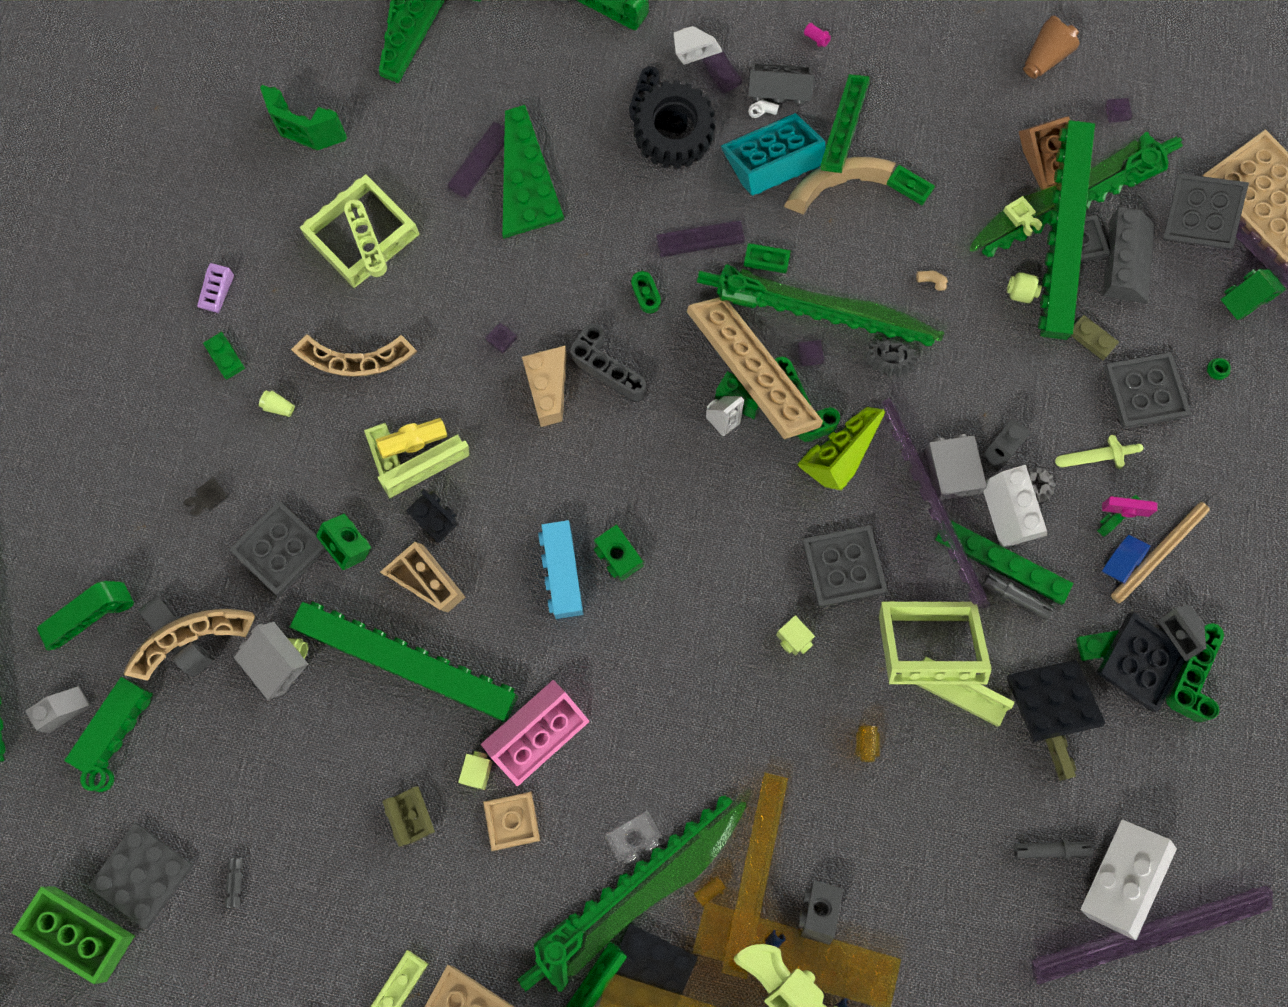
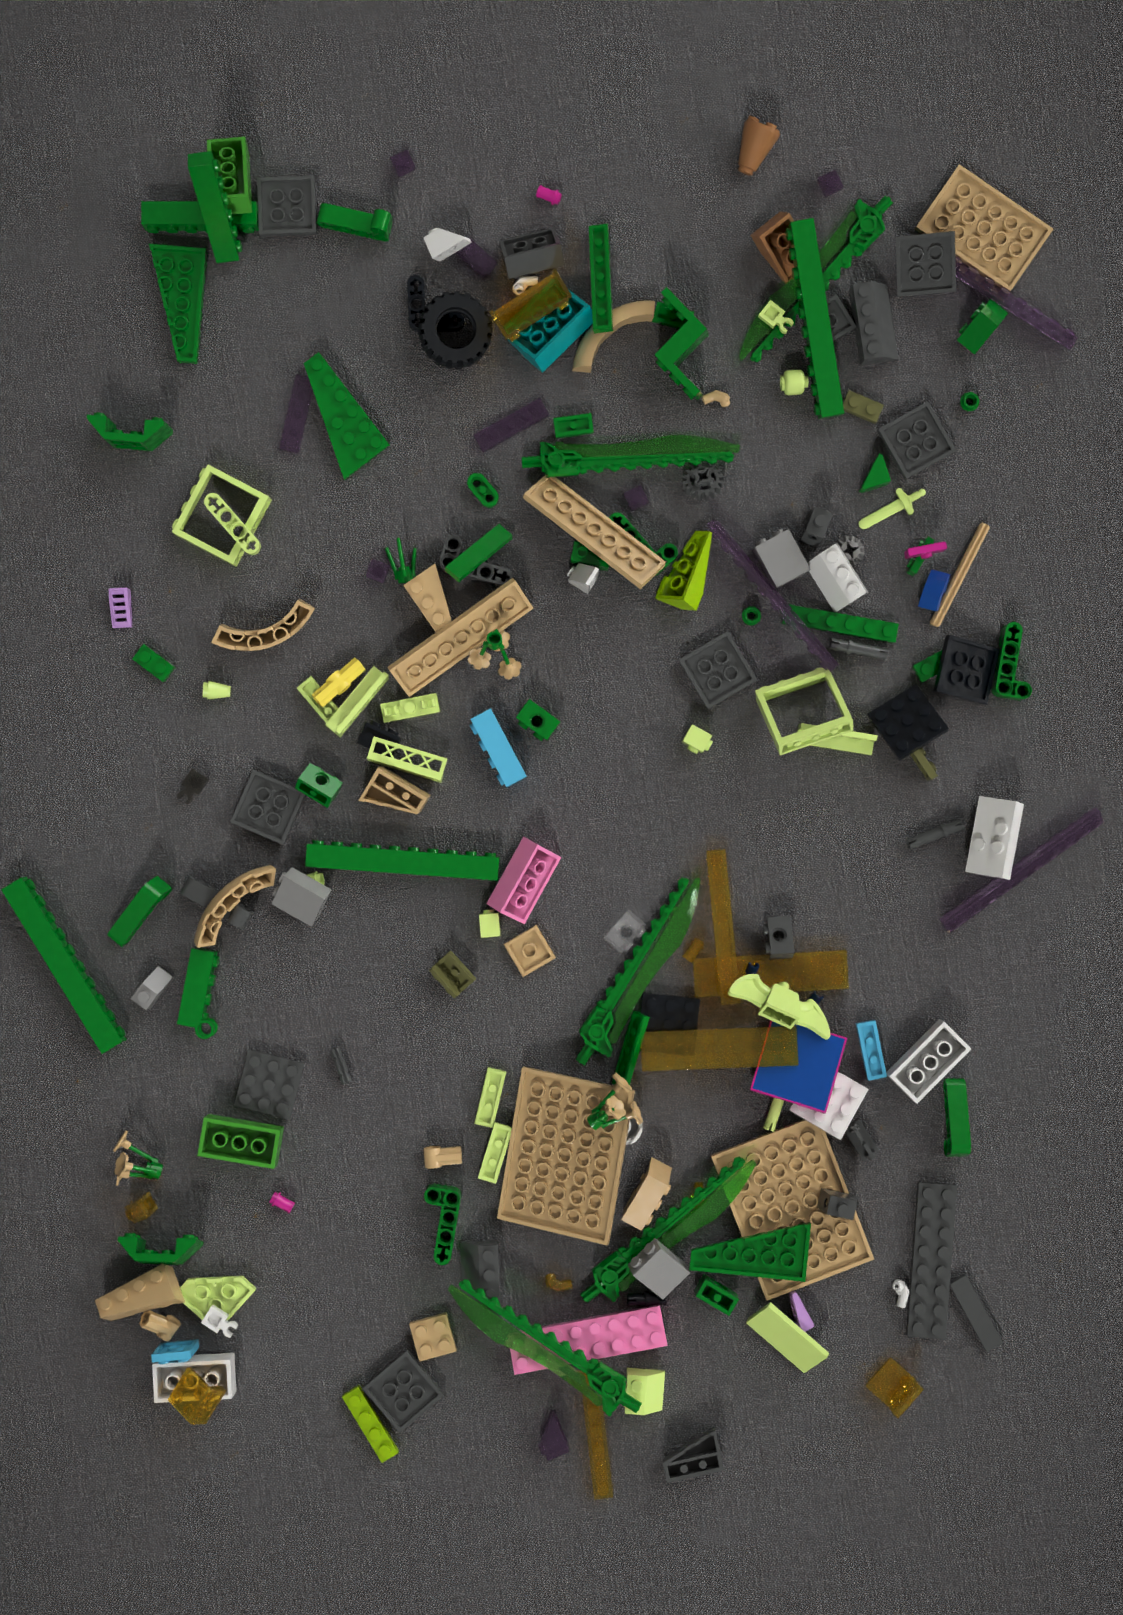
camera: 25 degrees left, 15 degrees up
(448, 554) = (403, 766): none -> yellowish green fence
(480, 493) = (410, 708): none -> yellowish green plate
(530, 347) = (403, 573): none -> green plant
(563, 433) = (459, 637): none -> tan plate
(606, 454) = (495, 641): none -> tan plant
(616, 350) = (478, 553): none -> green tile
(763, 125) = (531, 306): none -> clear yellow windscreen
(867, 743) = (776, 802): clear yellow brick -> none
(904, 512) = (751, 609): none -> green plate
(911, 209) = (681, 344): none -> green bracket
(1092, 414) = (877, 475): none -> green slope
(1185, 631) = (992, 635): dark grey slope -> none

